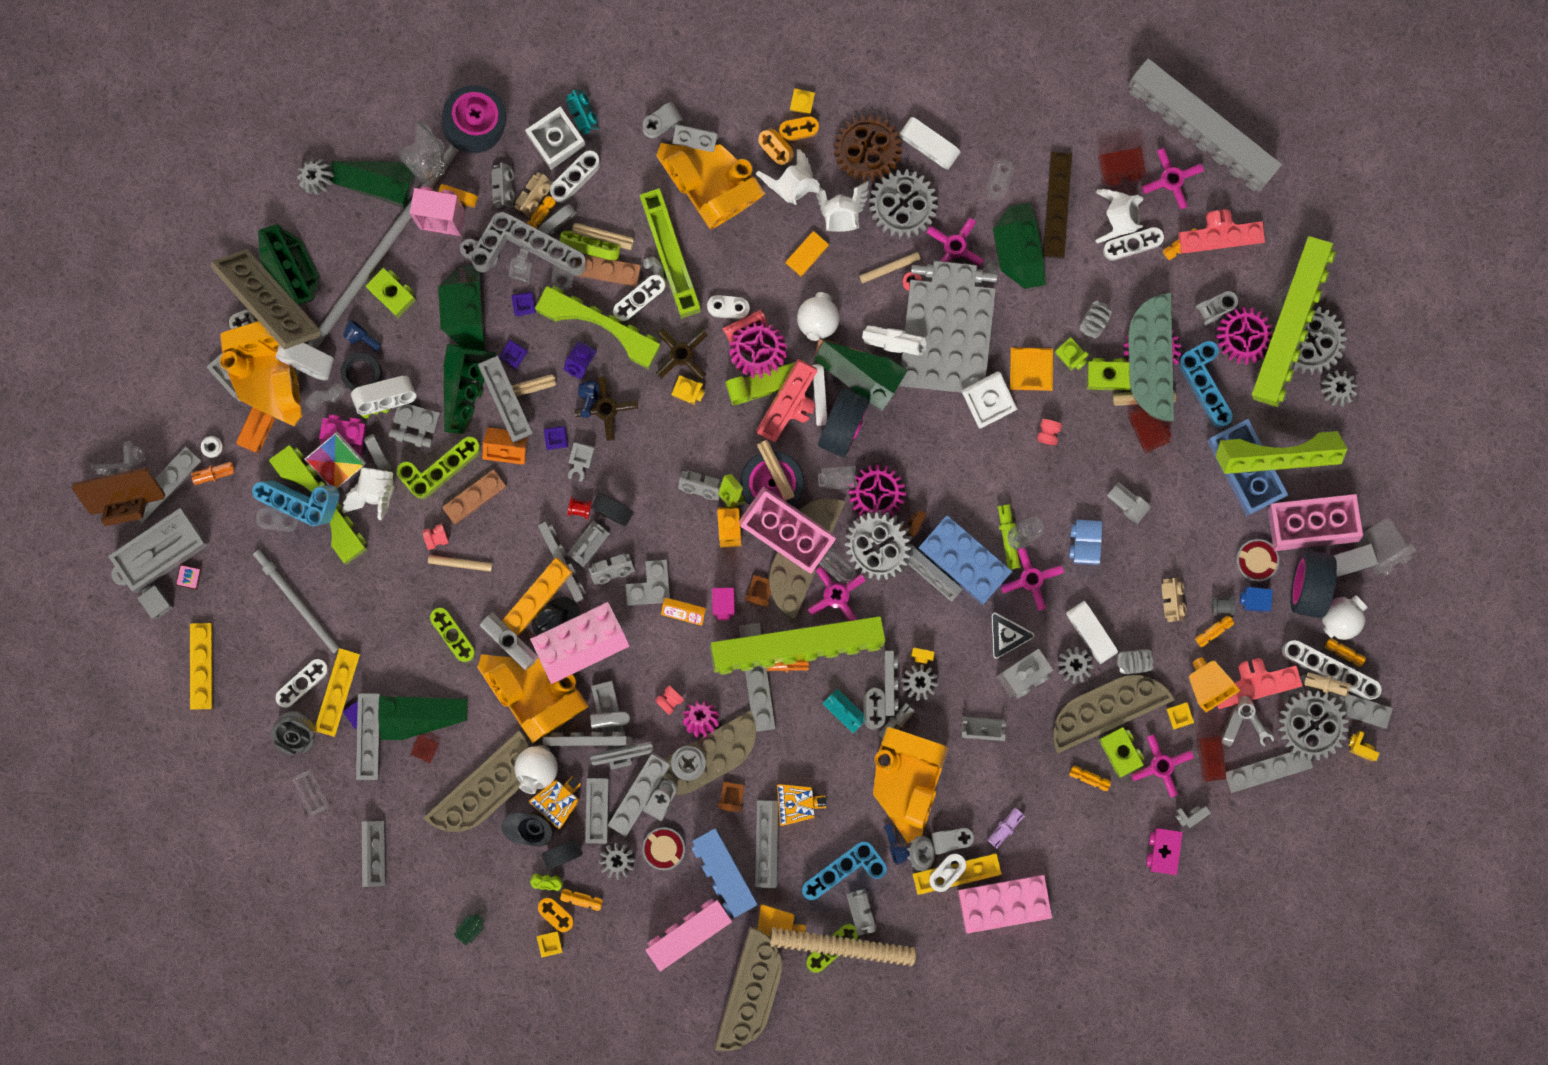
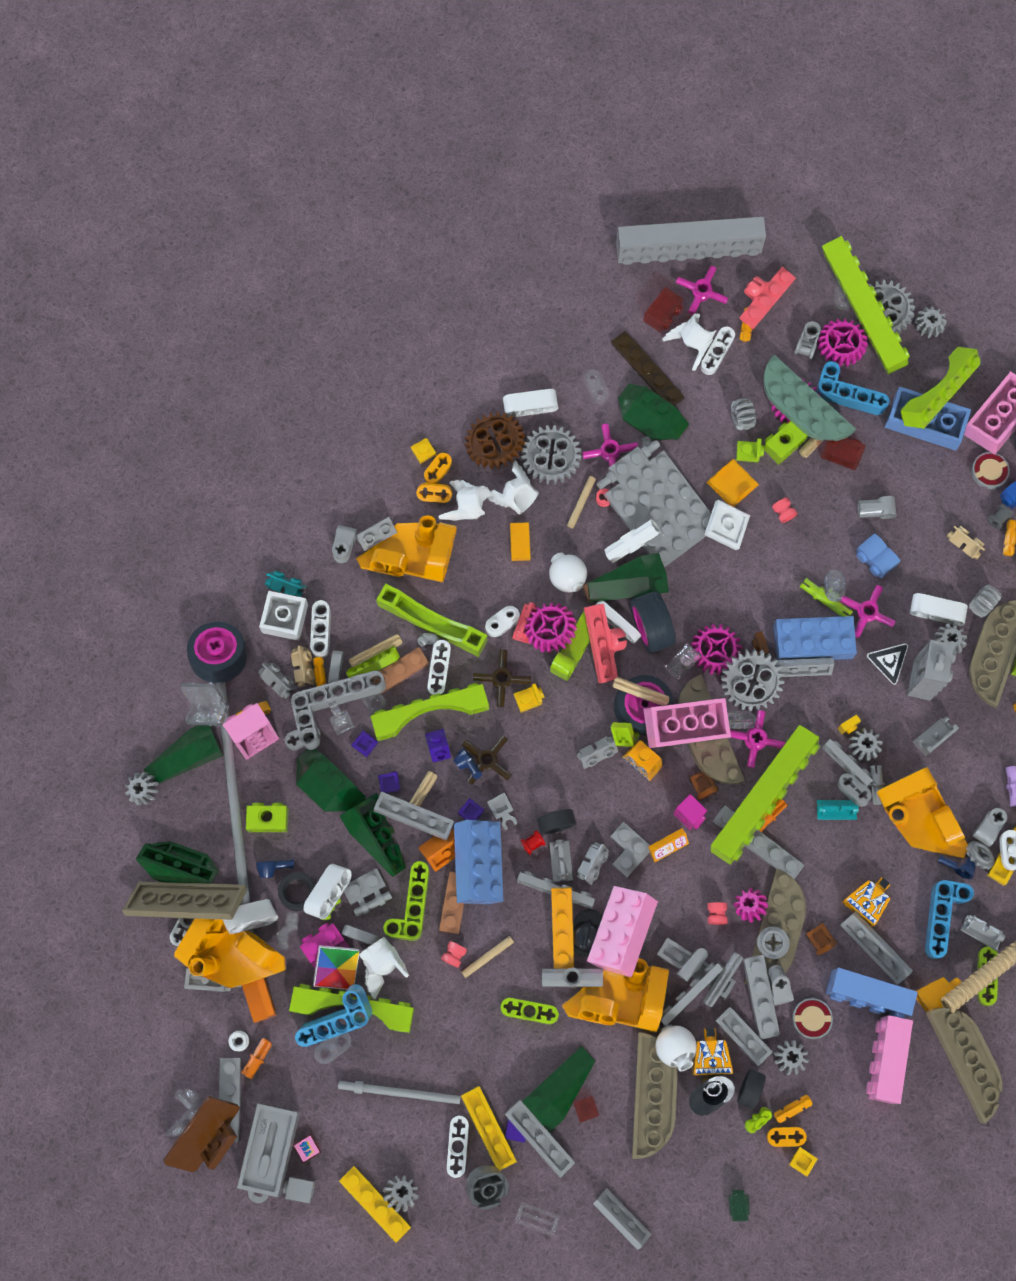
camera: 45 degrees left, 10 degrees down
(226, 668) = (394, 1187): none -> light grey gear
(520, 483) = (478, 862): none -> medium blue brick

